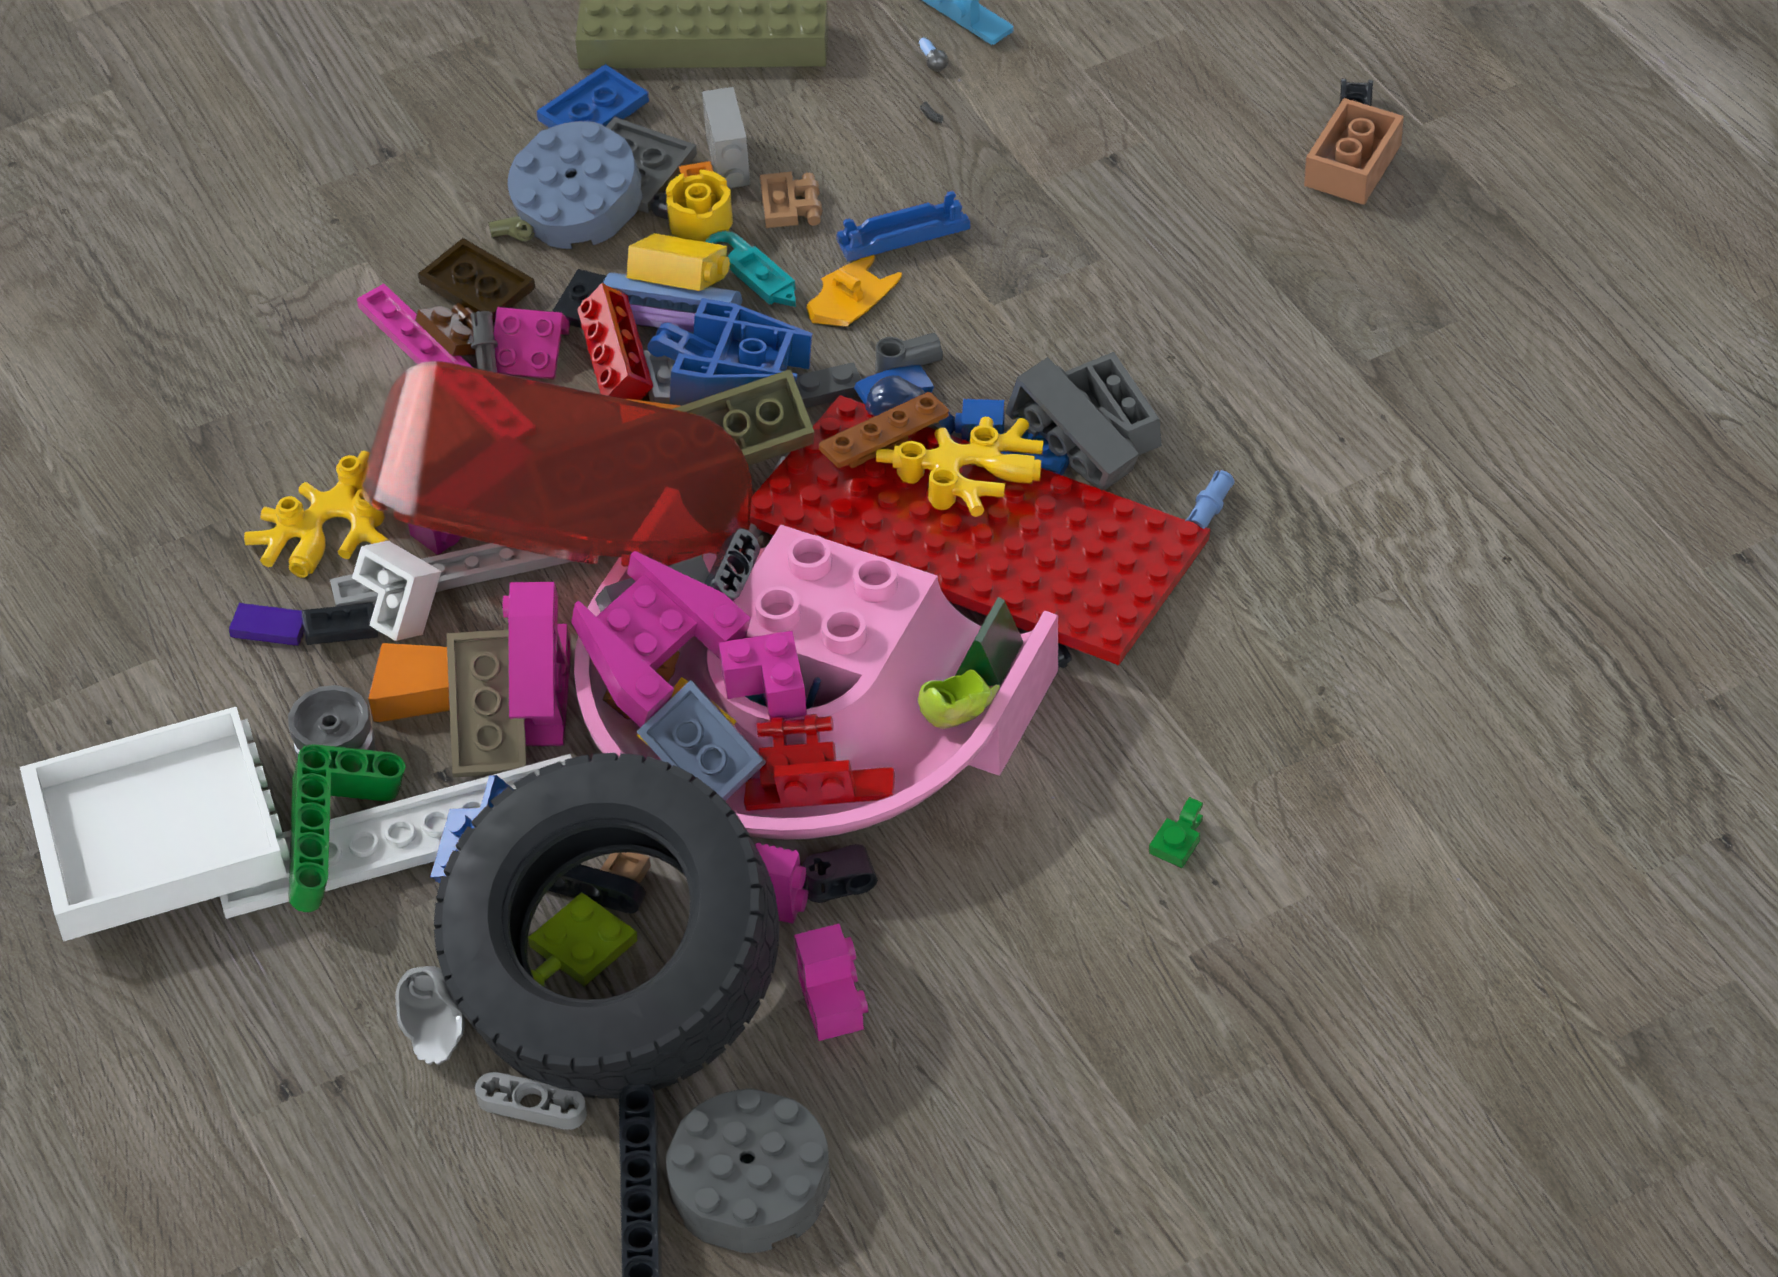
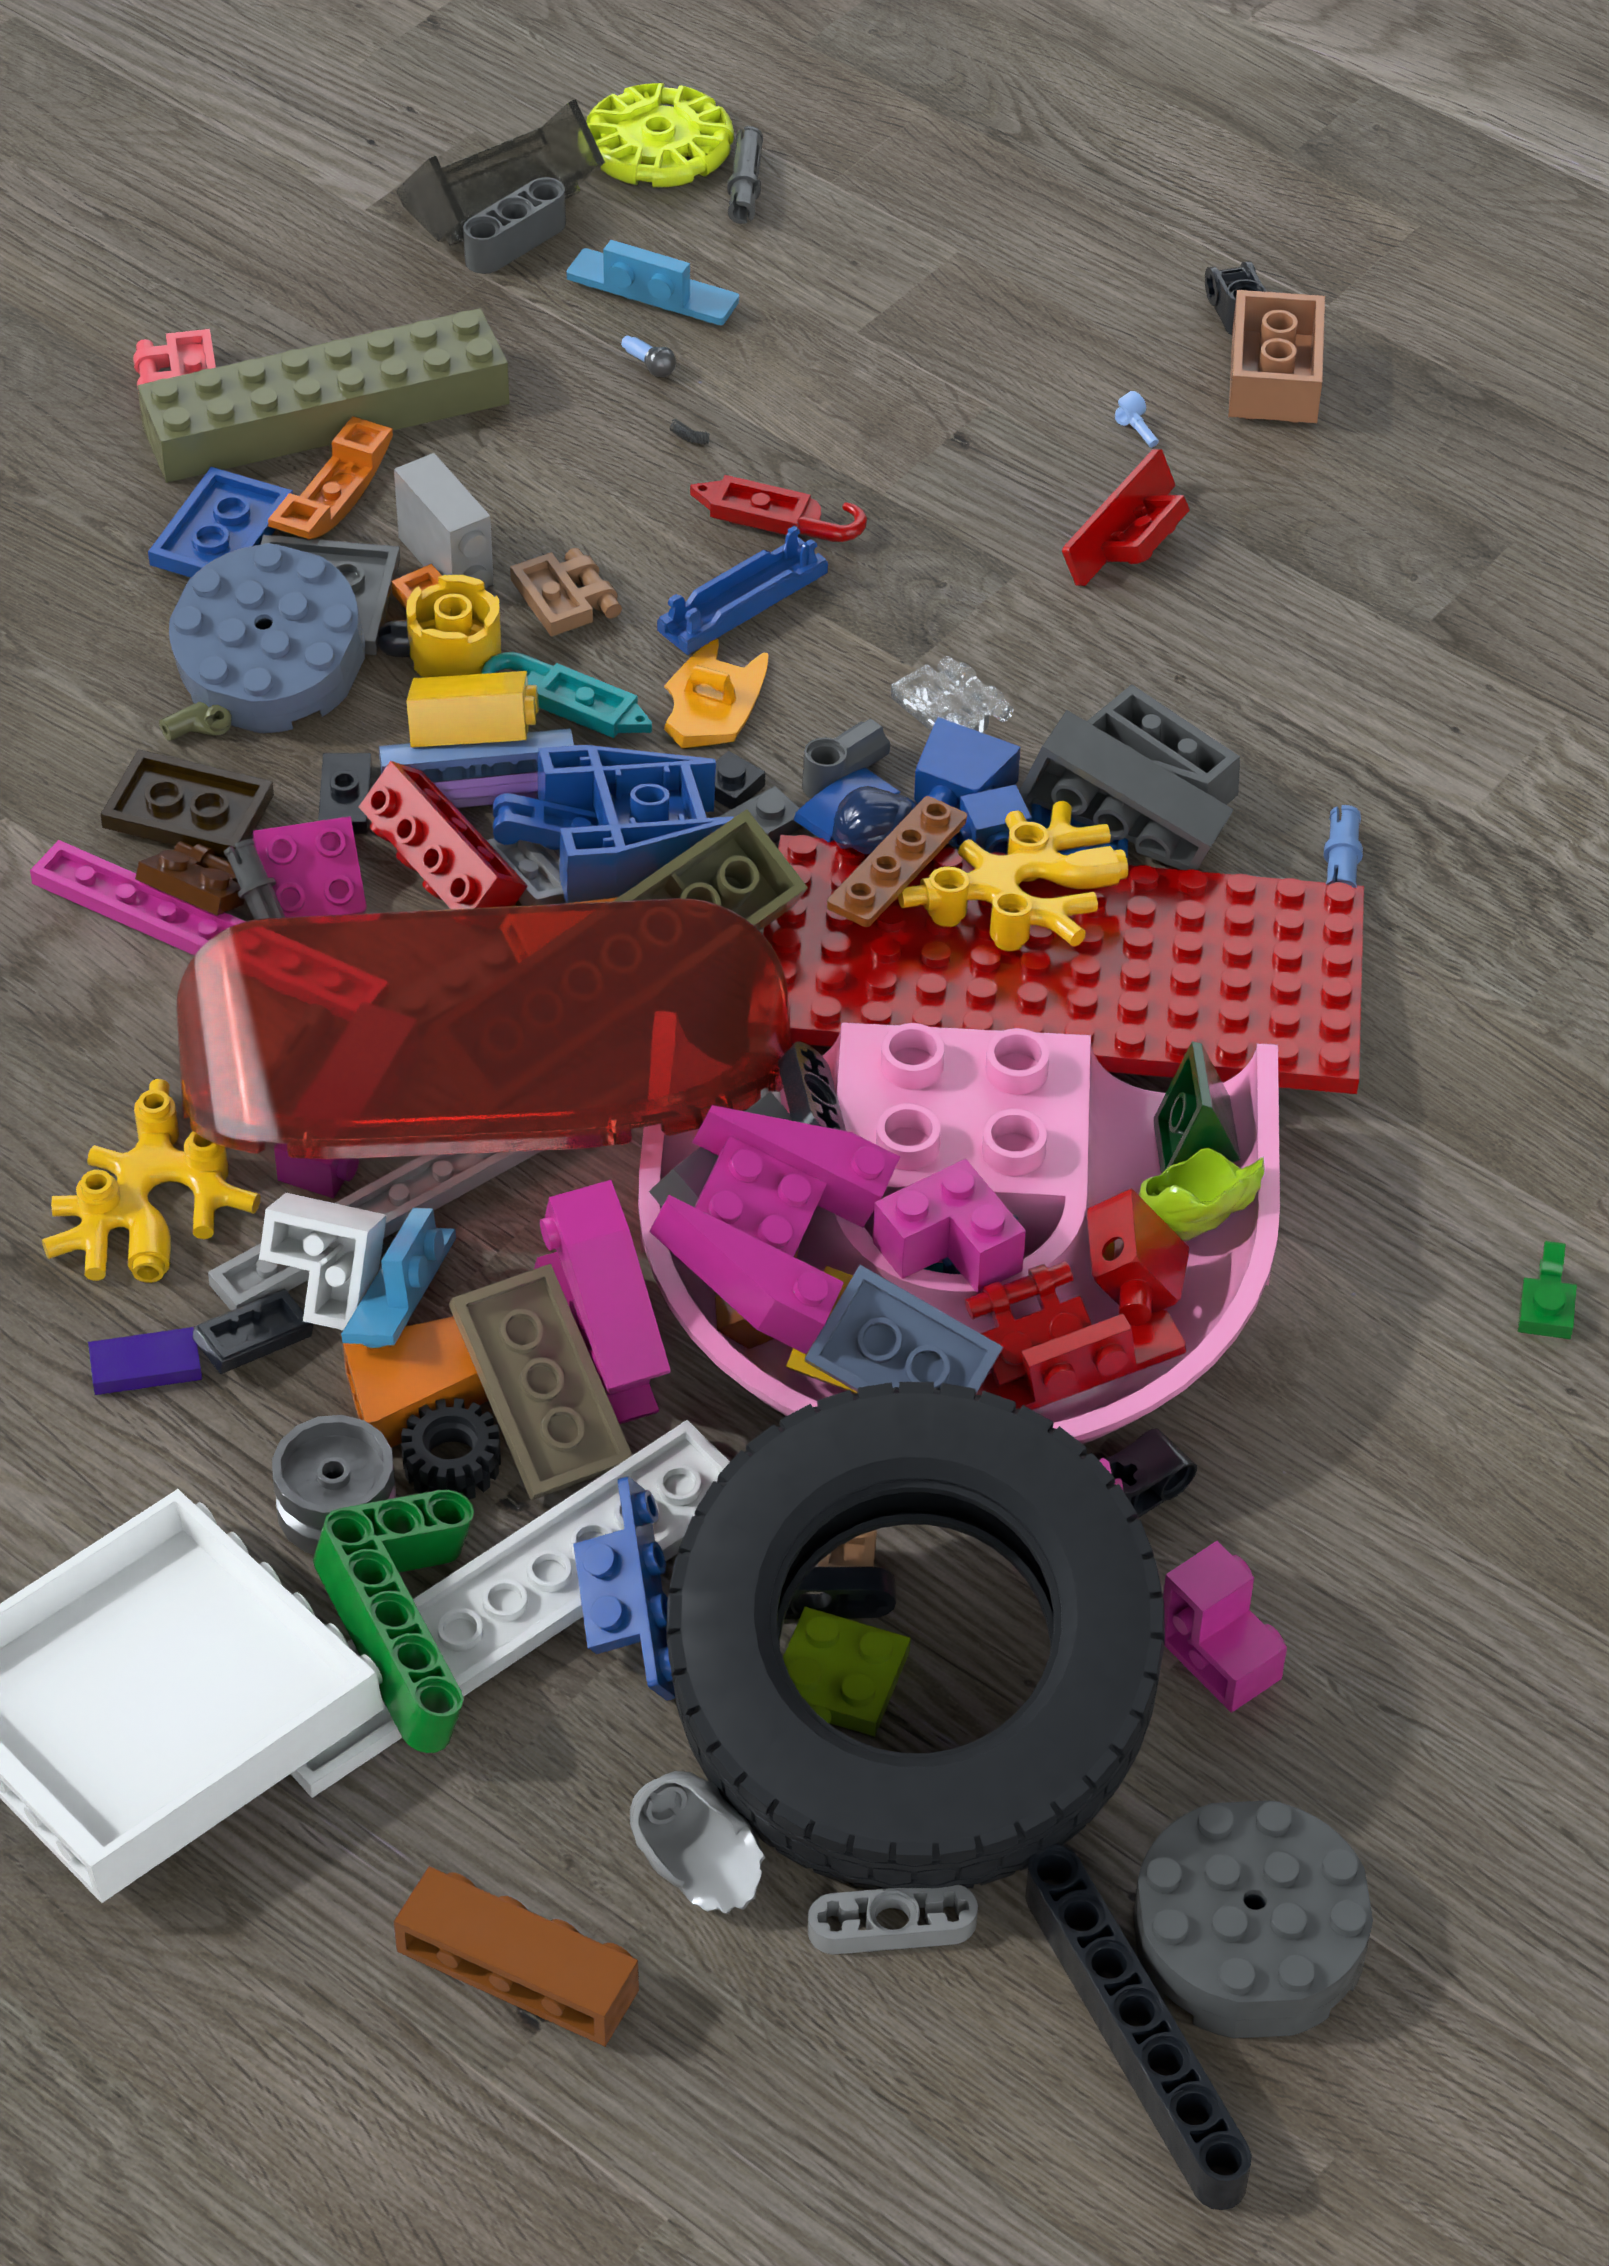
camera: 25 degrees left, 0 degrees up
(288, 1049) = (517, 1955): none -> dark orange brick
(415, 716) = (451, 1425): none -> black tyre
(437, 611) = (400, 1281): none -> dark azure bracket
(680, 98) = (339, 484): none -> orange slope
(831, 351) = (736, 780): none -> black plate
(890, 728) = (1135, 1256): none -> red torso
(956, 176) = (774, 509): none -> red plate
(978, 376) = (963, 763): none -> torso
(993, 336) = (936, 695): none -> clear plate
(1188, 241) = (1128, 522): none -> red bracket
(1237, 164) = (1130, 411): none -> light blue hand

